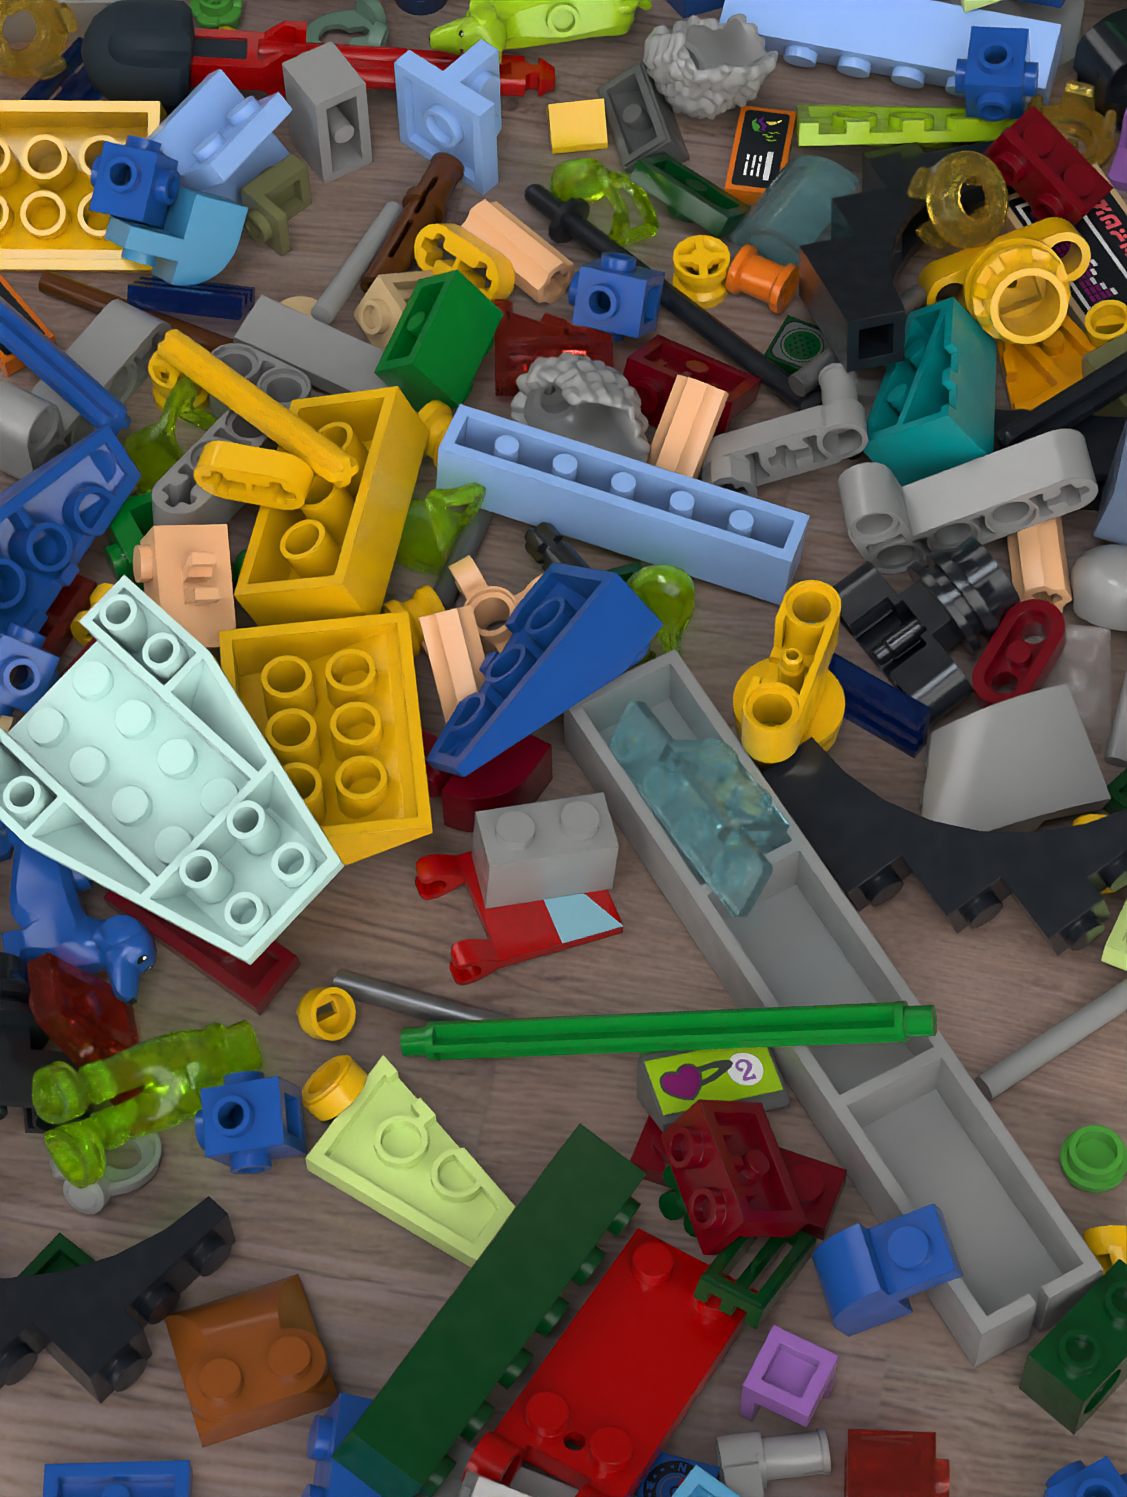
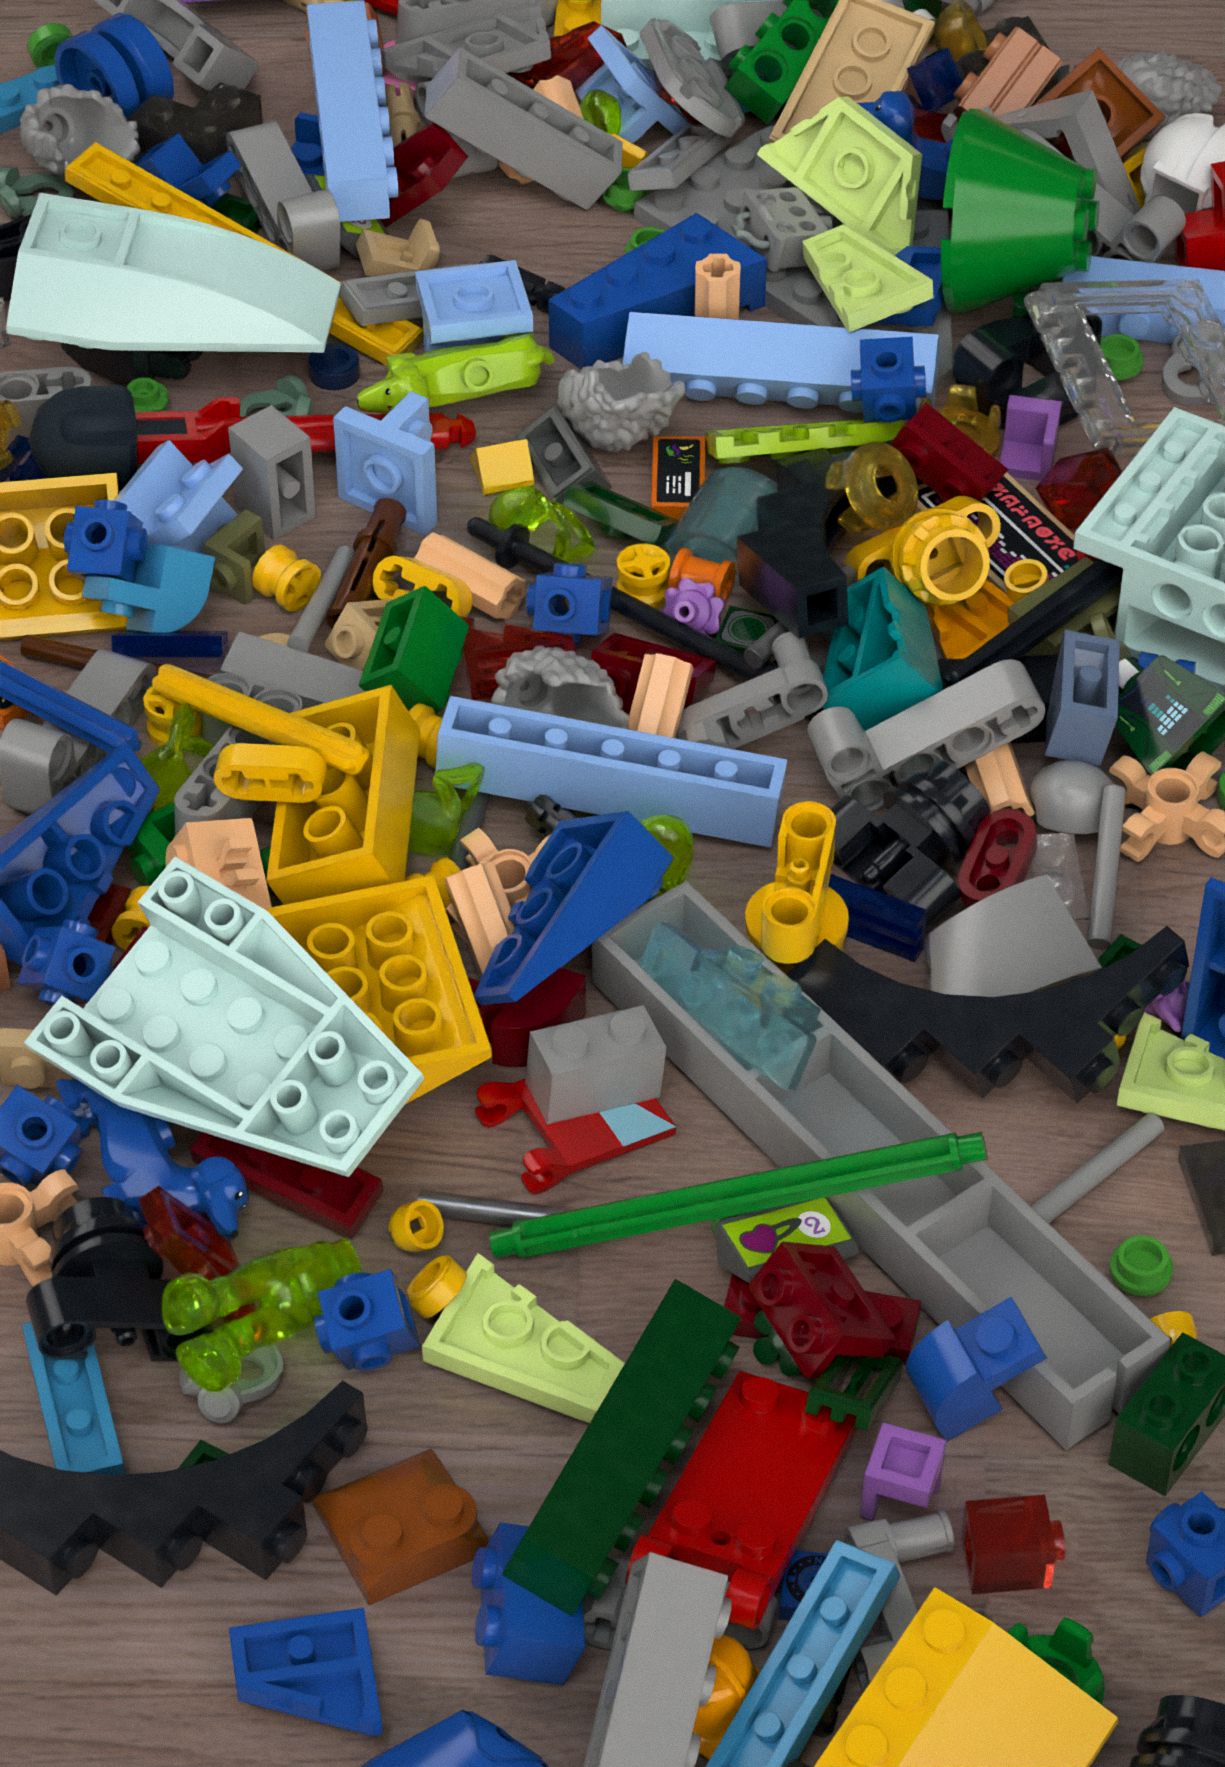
camera: 10 degrees left, 10 degrees down
(324, 233) = (286, 577): none -> yellow wheel
(748, 313) = (695, 605): none -> medium lavender plant

